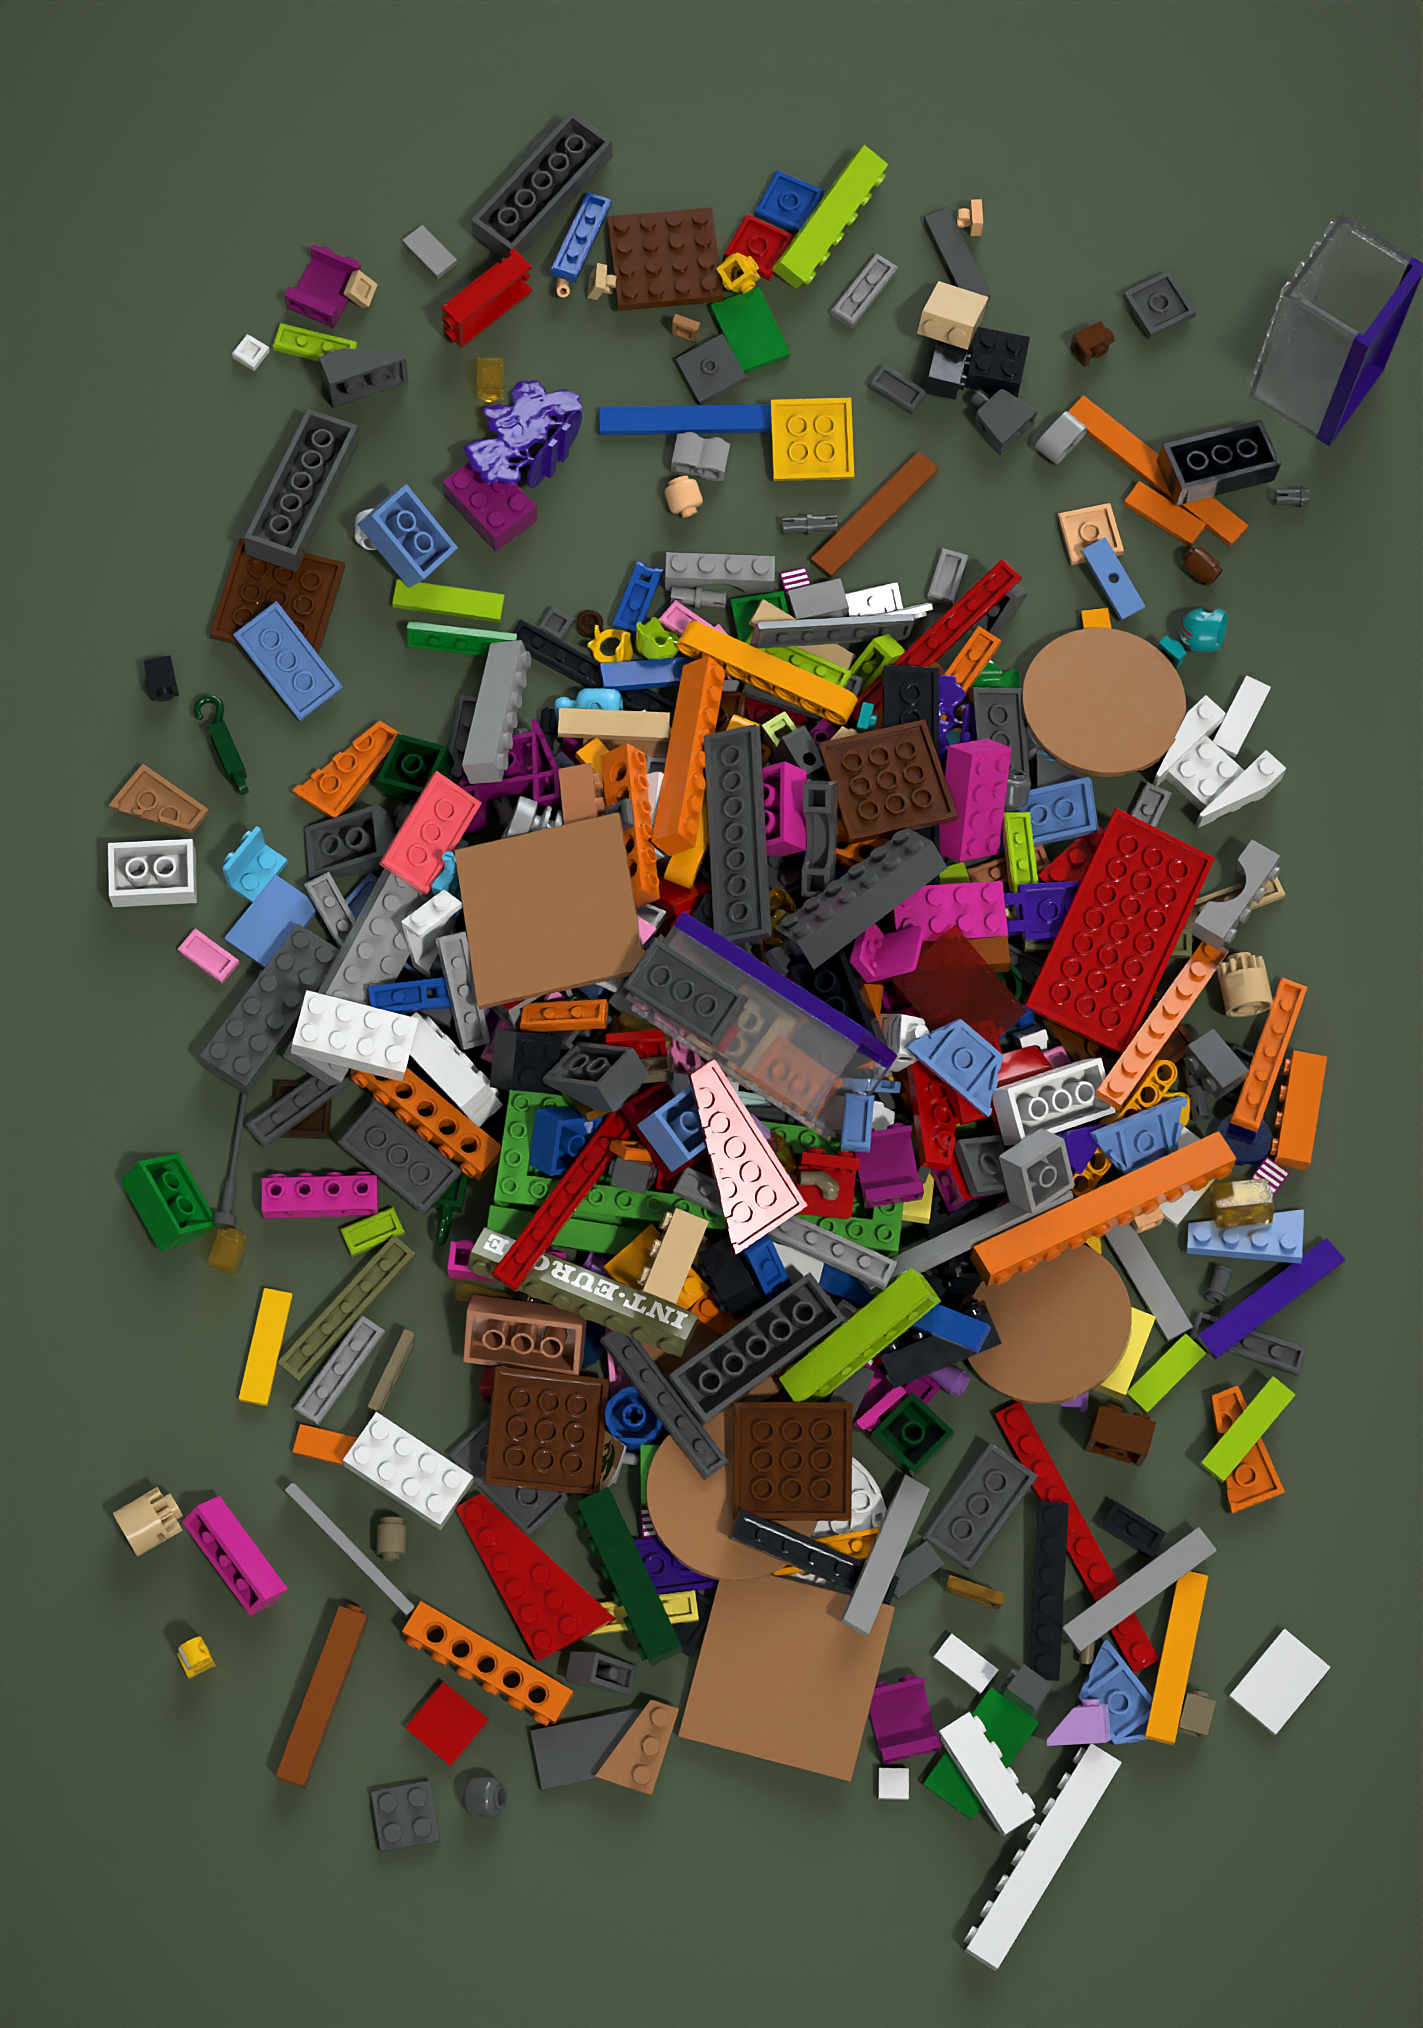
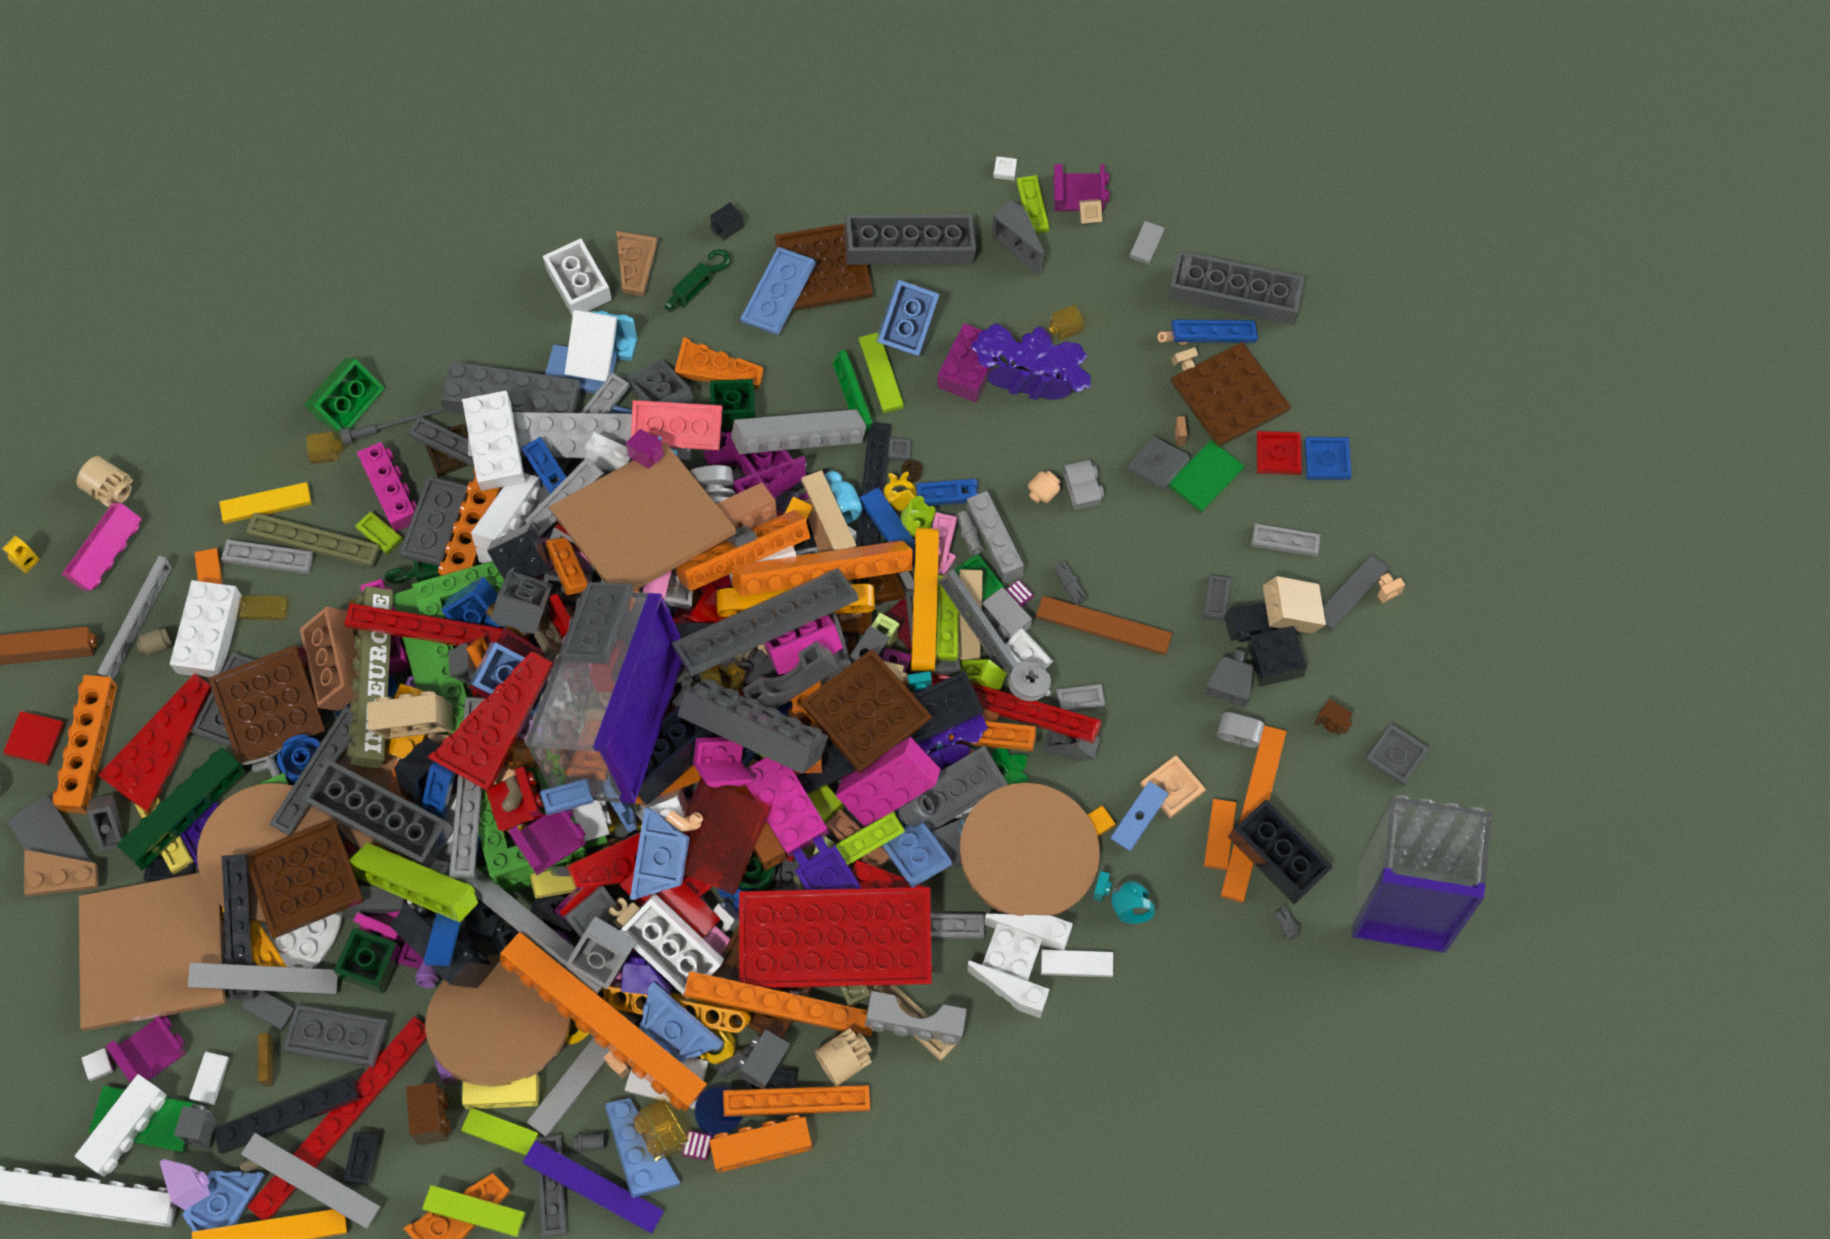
camera: 70 degrees right, 5 degrees down
(208, 956) = (537, 342): bright pink tile -> none
(261, 890) = (591, 345): none -> white tile
(391, 1372) = (282, 588): dark tan tile -> none
(406, 1398) = (263, 607): none -> clear yellow tile
(459, 870) = (644, 448): none -> magenta brick
(486, 299) = (1124, 289): red door -> none
(682, 419) = (1118, 478): blue tile -> none
(731, 271) = (1244, 445): yellow brick -> none
(812, 439) = (1138, 553): yellow plate -> none
(830, 216) = (1329, 487): lime brick -> none
(919, 610) = (1029, 681): none -> light grey piece
(940, 1017) = (685, 824): none -> light nougat arm
(1000, 1131) = (625, 914): none -> tan tile
(1202, 565) = (1188, 879): reddish brown brick -> none

